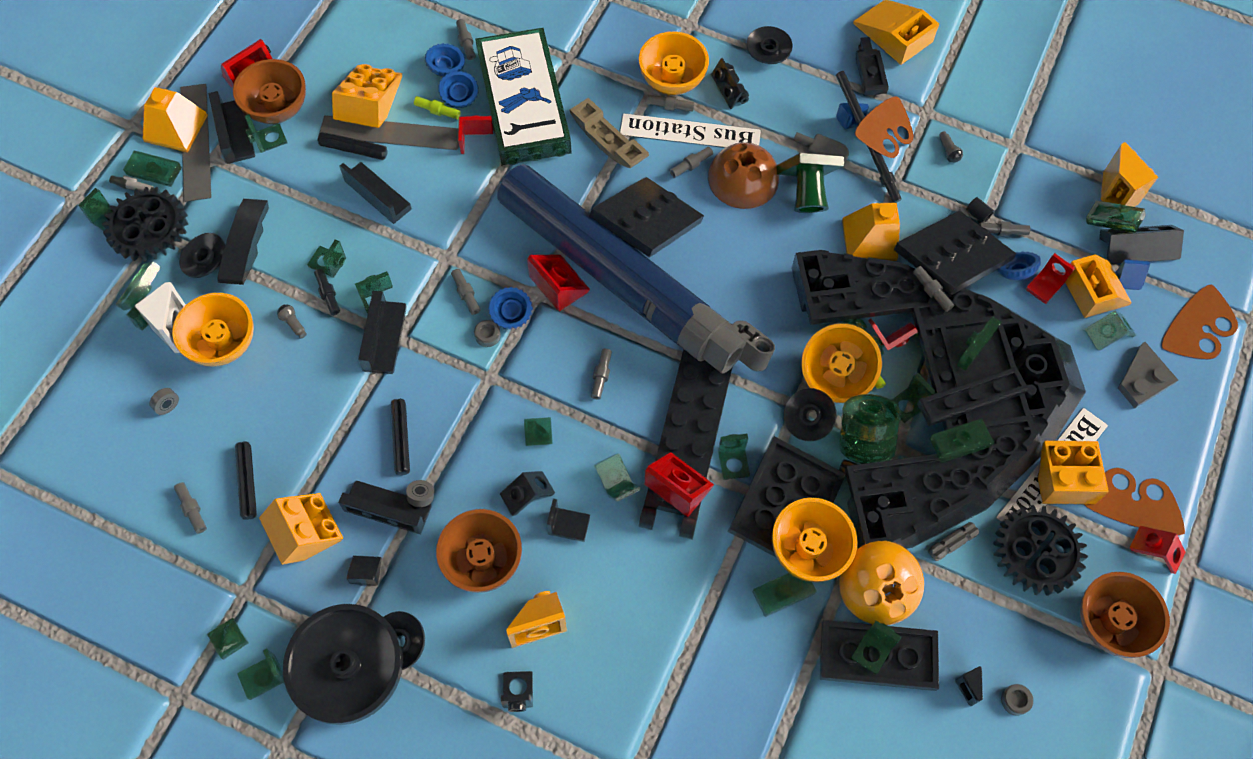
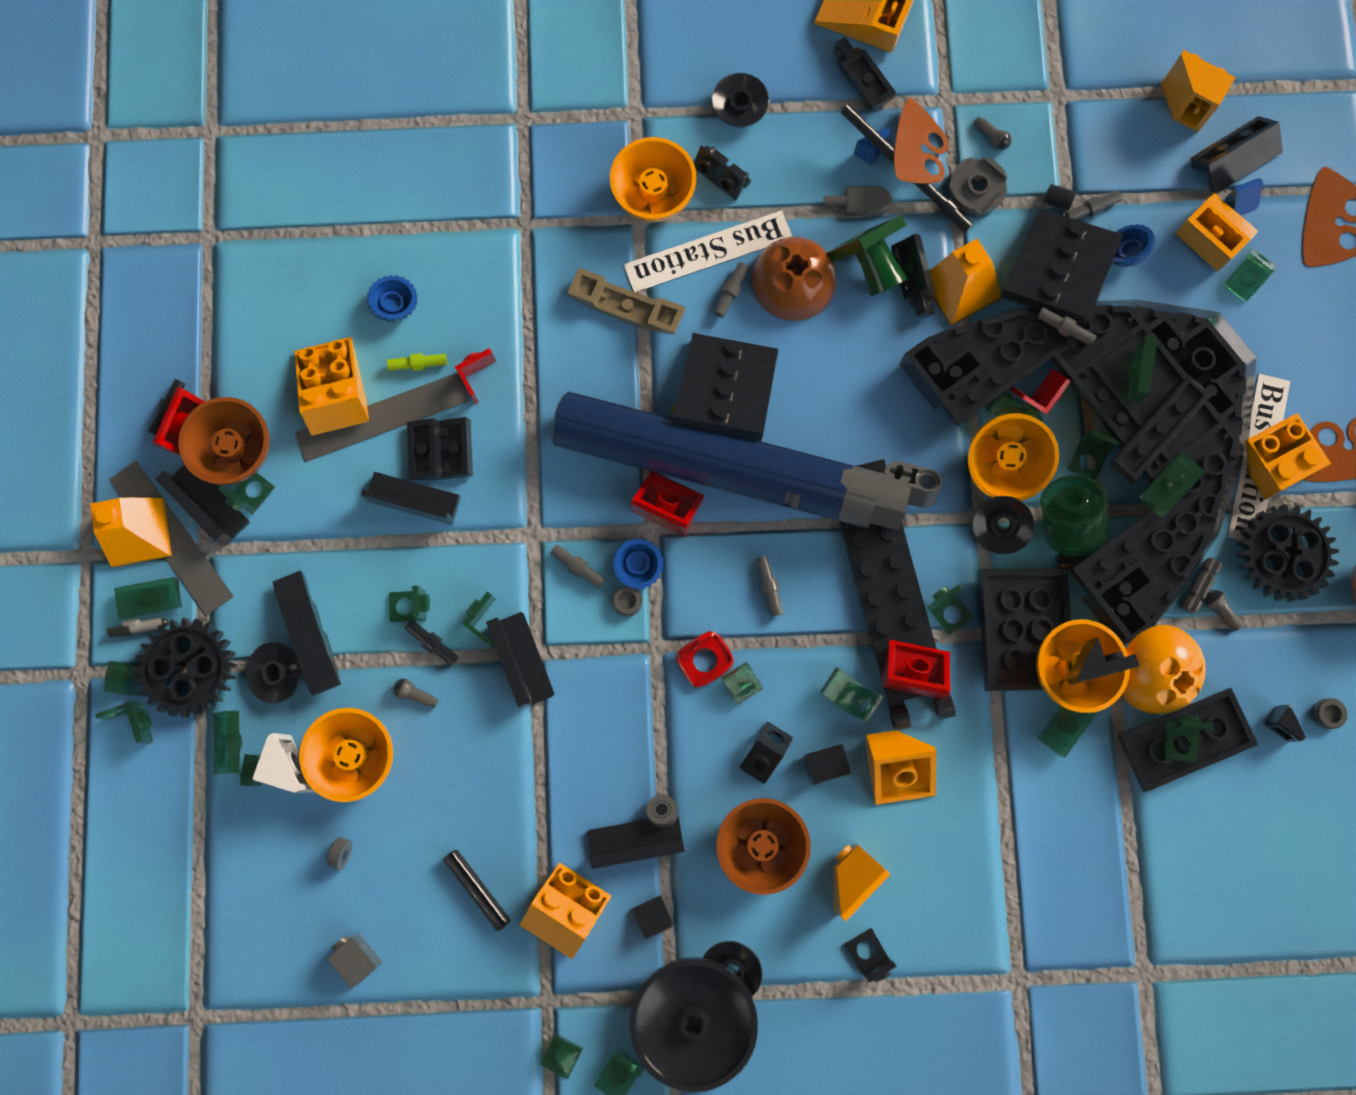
camera: 25 degrees left, 15 degrees up
(89, 239) = (138, 717): none -> clear green bracket
(122, 481) = (353, 959): none -> dark grey brick
(190, 508) = (439, 948): dark grey bar -> none
(352, 145) = (352, 456): black axle -> none
(400, 437) = (605, 761): black axle -> none
(416, 169) = (439, 449): none -> black slope
(458, 89) = (429, 328): blue hat -> none
(465, 39) = (398, 258): dark grey bar -> none
(523, 96) = (505, 300): brick -> none
(525, 386) = (709, 640): none -> red piece
(625, 555) = (900, 767): none -> light orange slope
(670, 103) = (669, 227): dark grey bar -> none
(819, 539) = (1093, 664): none -> black slope
(835, 218) = (918, 286): none -> black hinge
(919, 187) = (976, 170): none -> dark grey plate
(961, 560) = (1218, 602): none -> dark grey piece
(1050, 280) = (1167, 247): red bracket -> none
(1115, 216) = (1201, 137): clear green plate -> none
(1145, 377) = (1305, 309): dark grey wing -> none

